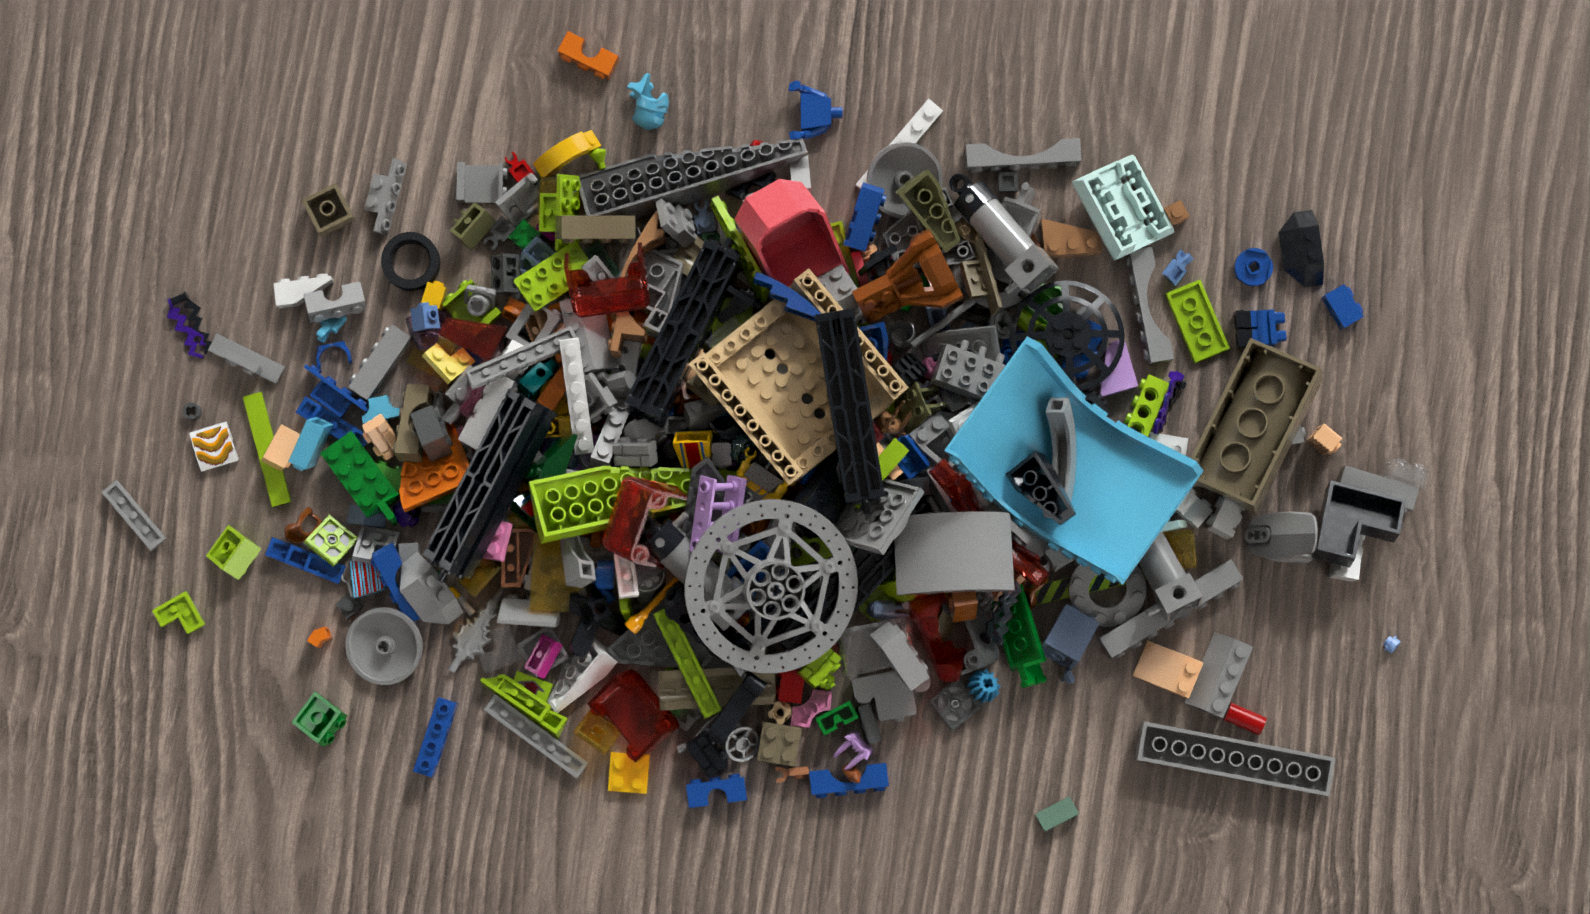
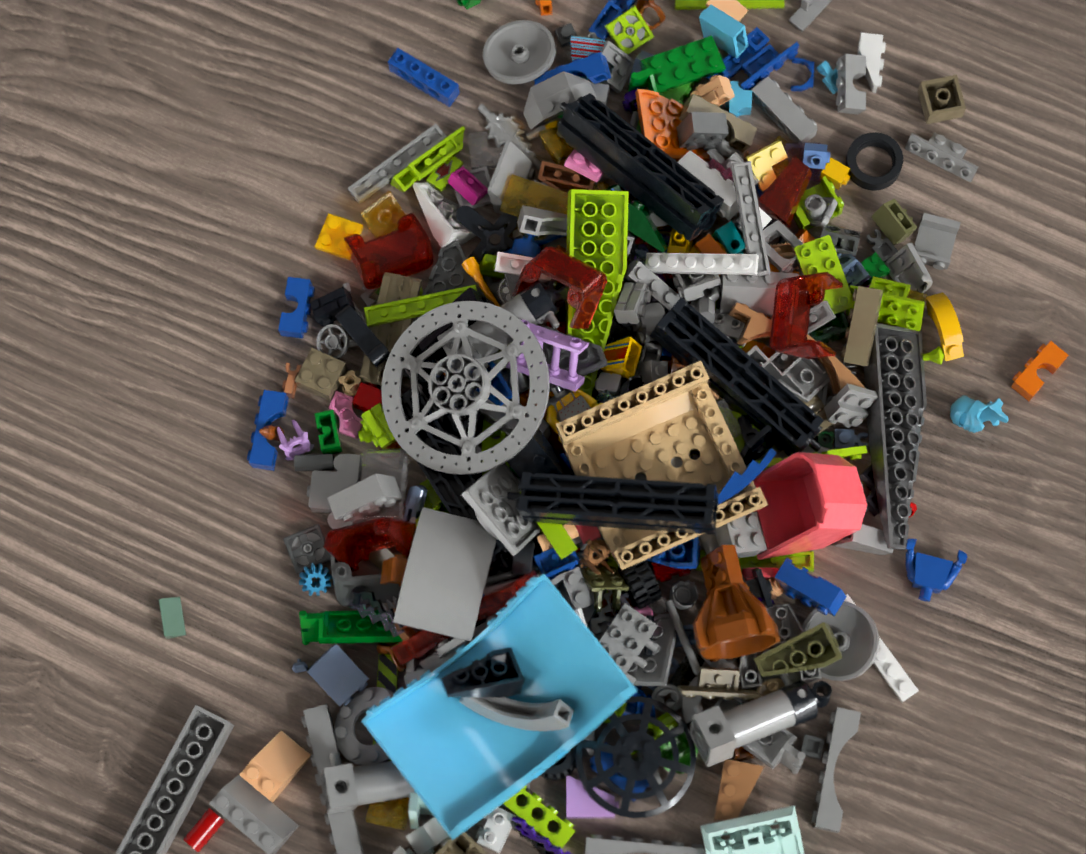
camera: 115 degrees right, 10 degrees down
(518, 169) = (941, 280): red plate -> none

